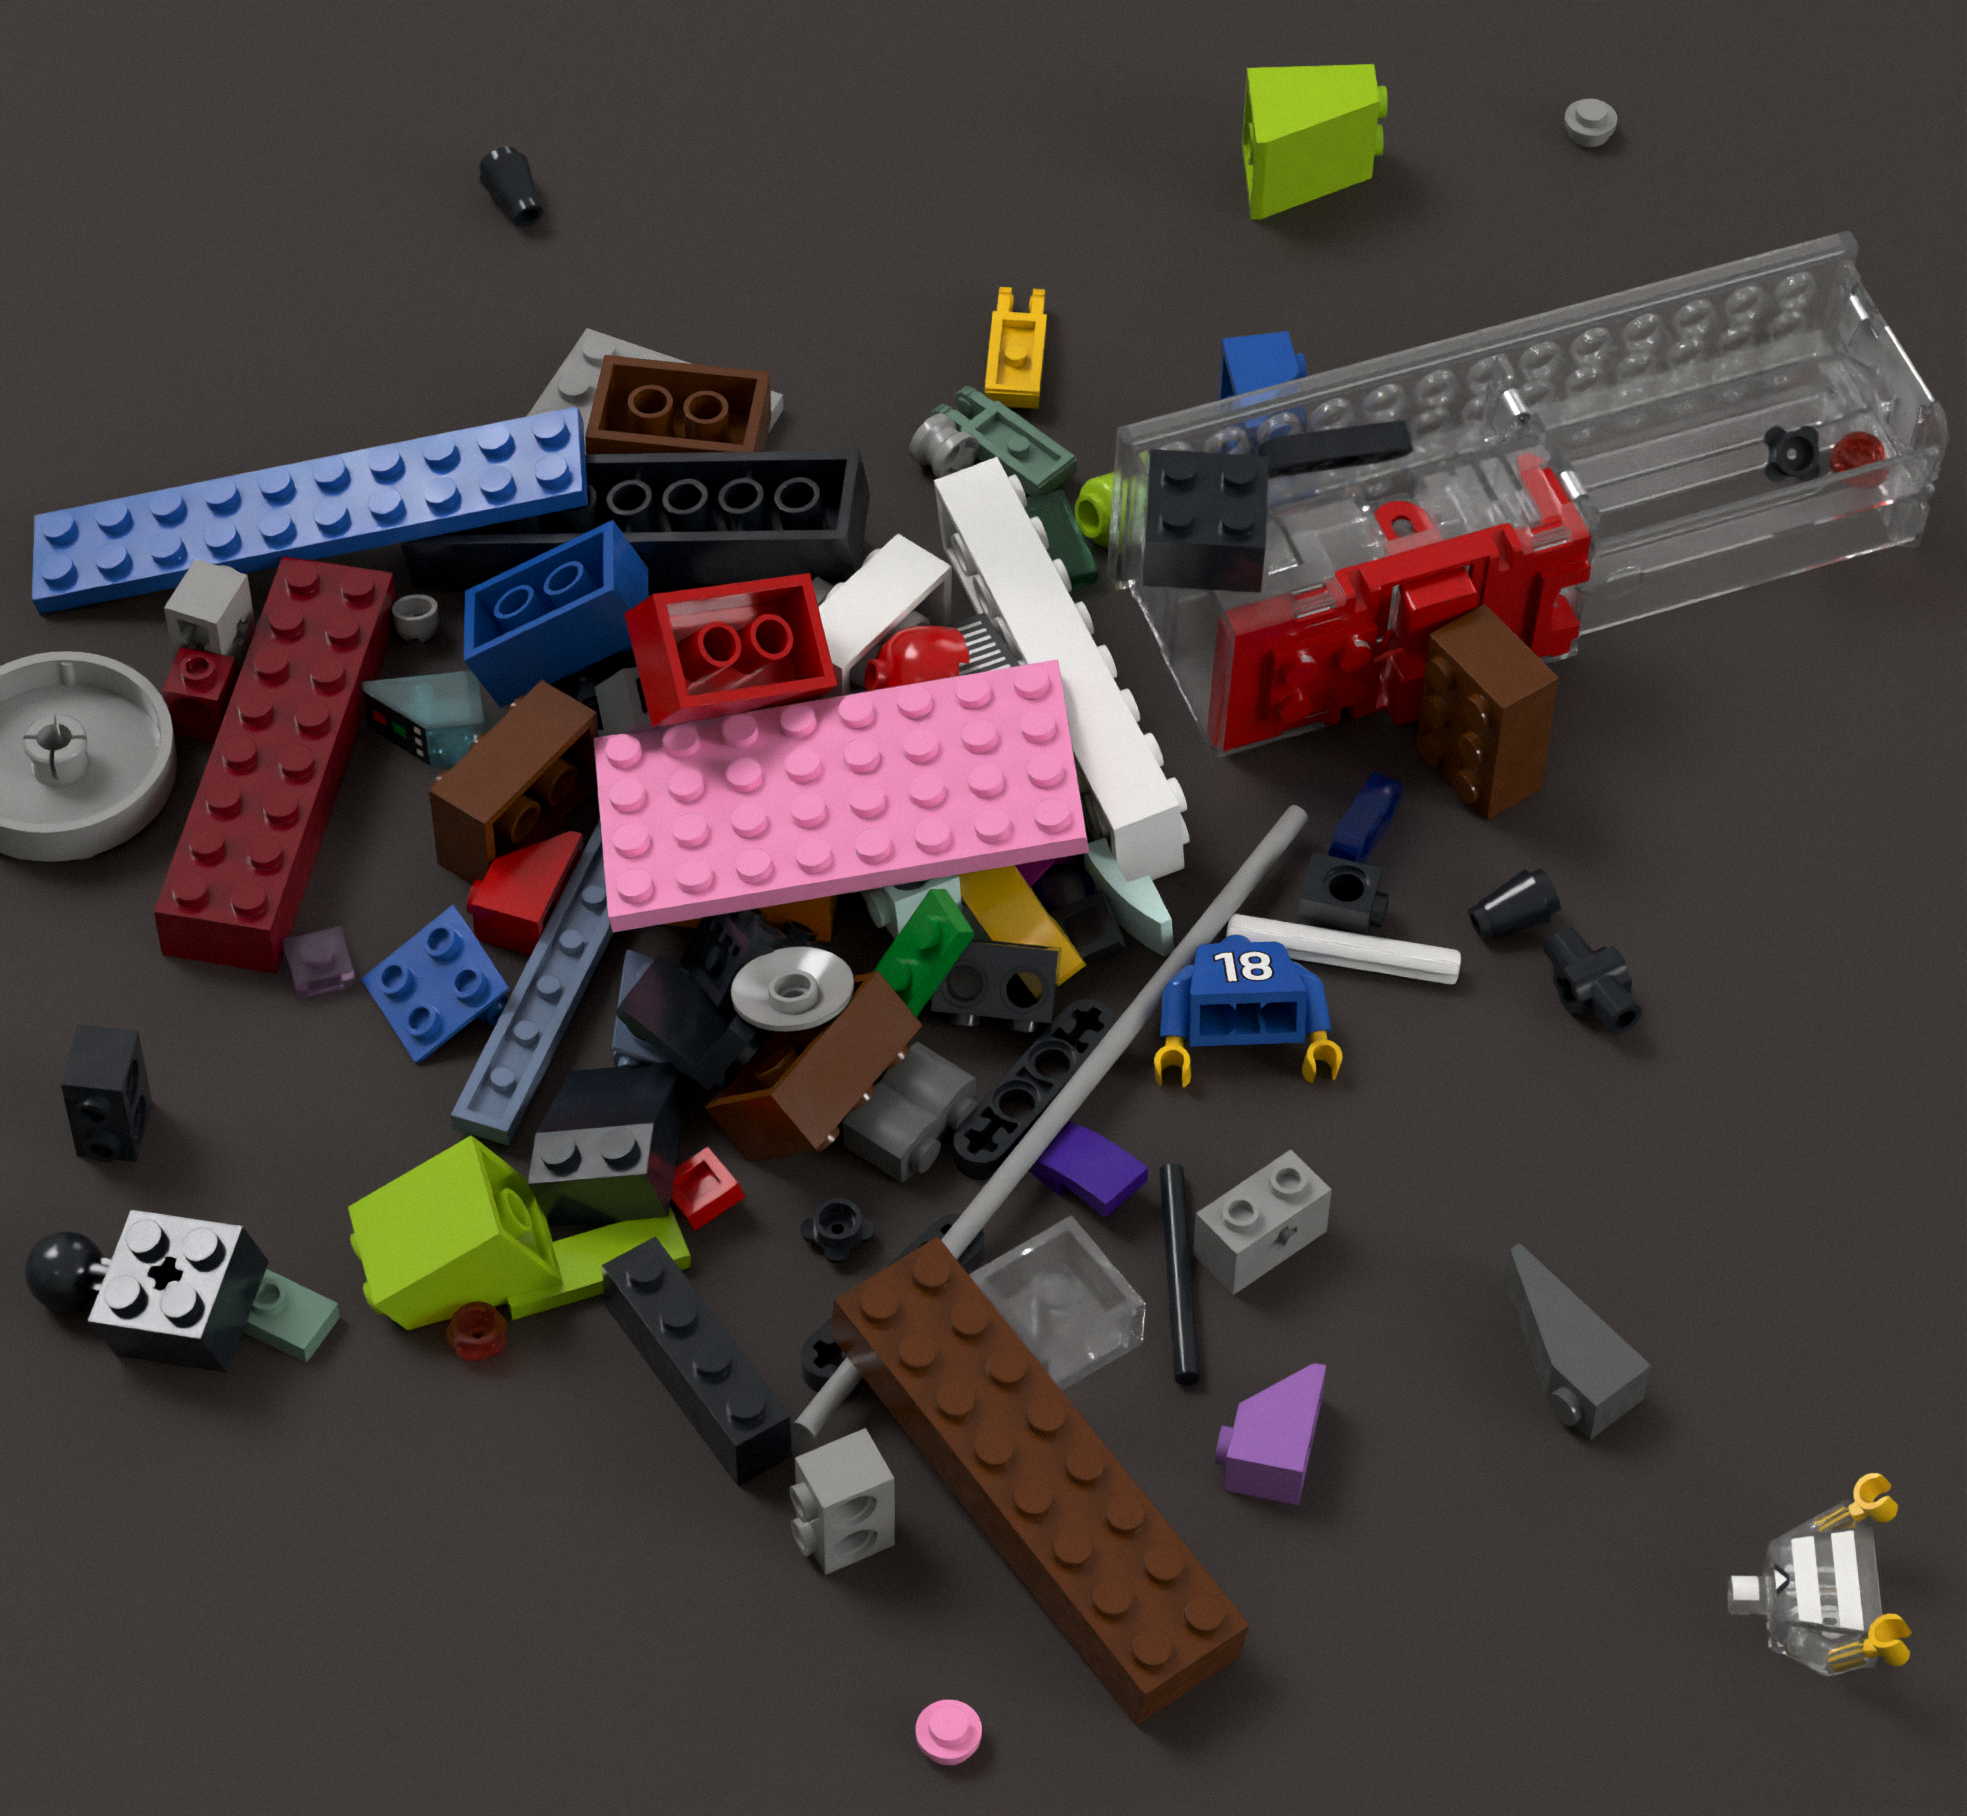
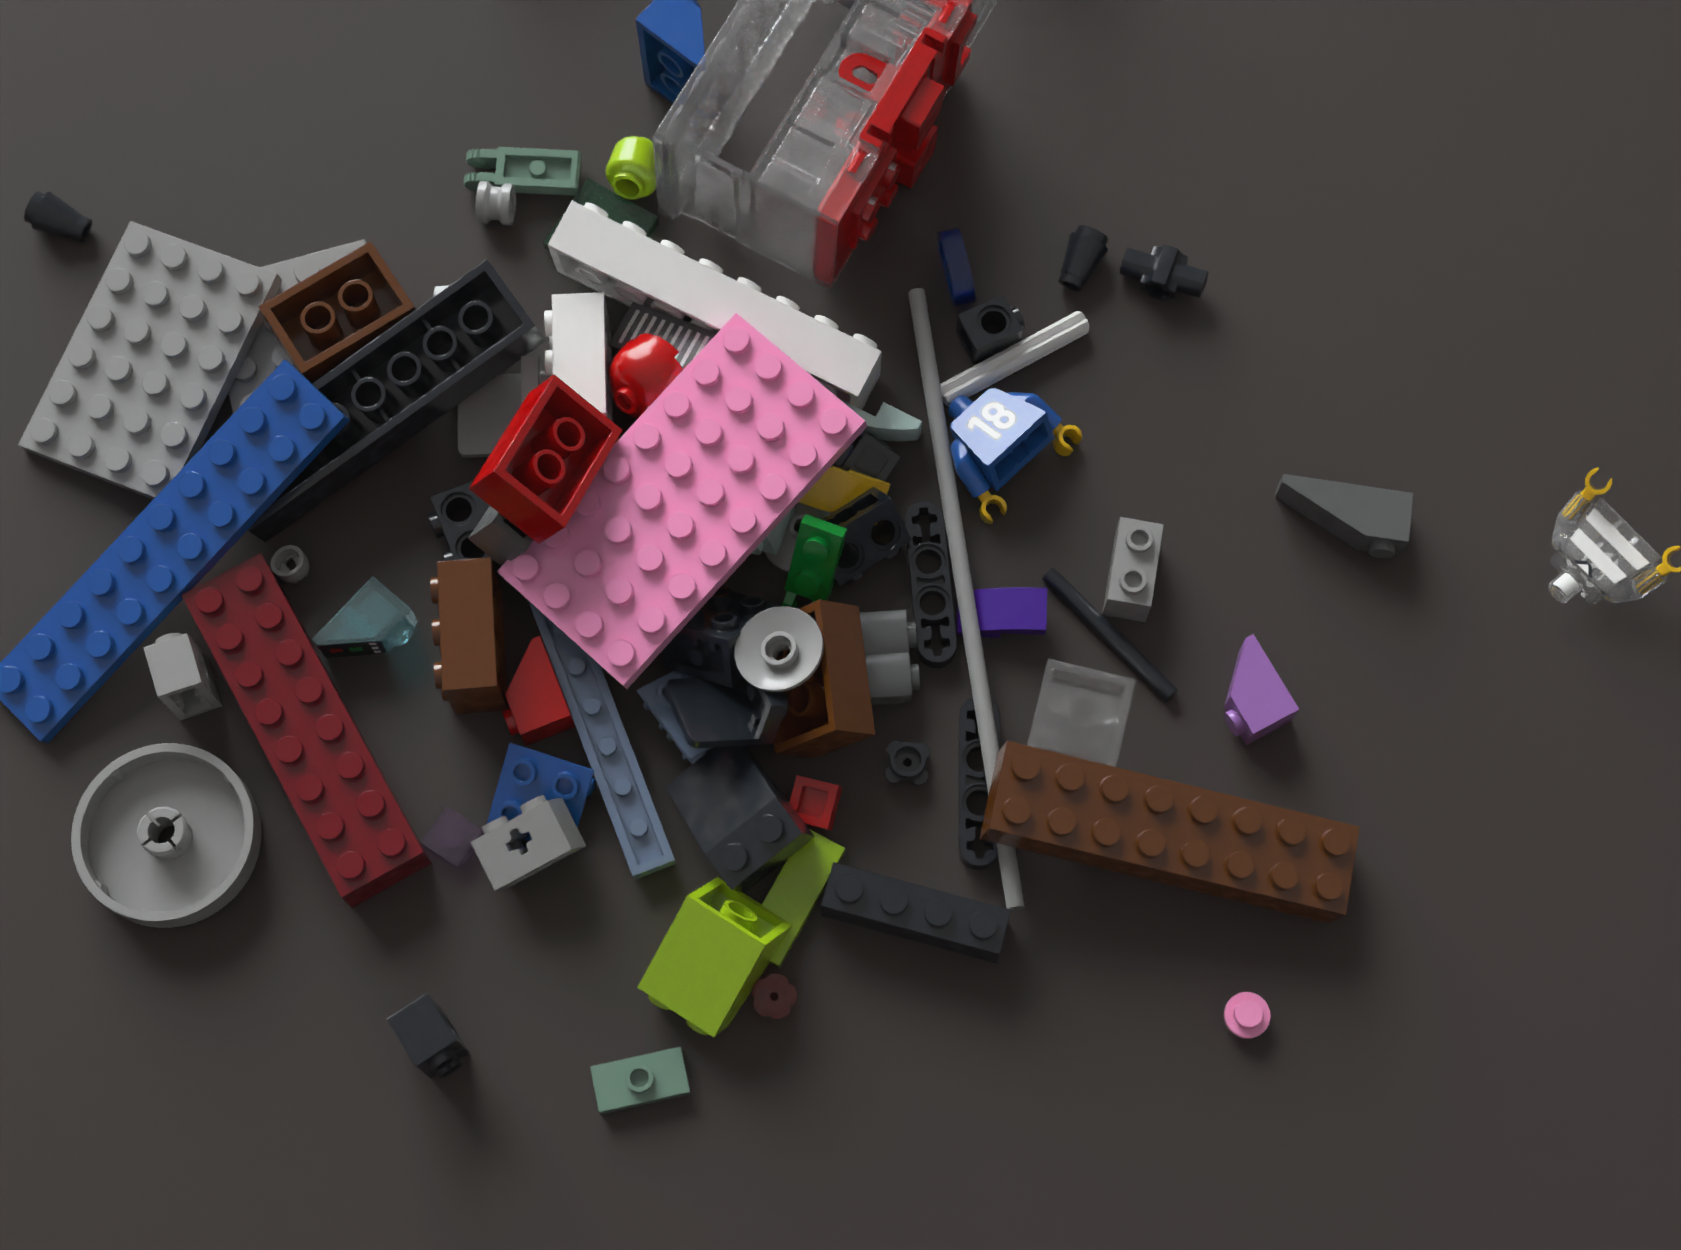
camera: 40 degrees left, 20 degrees up
(167, 1294) = (514, 1162): black brick -> none
(199, 692) = (215, 722): dark red brick -> none
(379, 1004) = (552, 836): none -> light grey brick
(467, 349) = (150, 361): none -> light grey plate
(553, 613) = (391, 504): blue brick -> none
(843, 1502) = (1083, 935): light grey brick -> none
(1016, 351) = (474, 102): yellow hinge -> none
(1205, 521) = (769, 163): black brick -> none
(1336, 448) = (776, 50): black beam -> none
(1486, 711) = (978, 149): reddish brown brick -> none

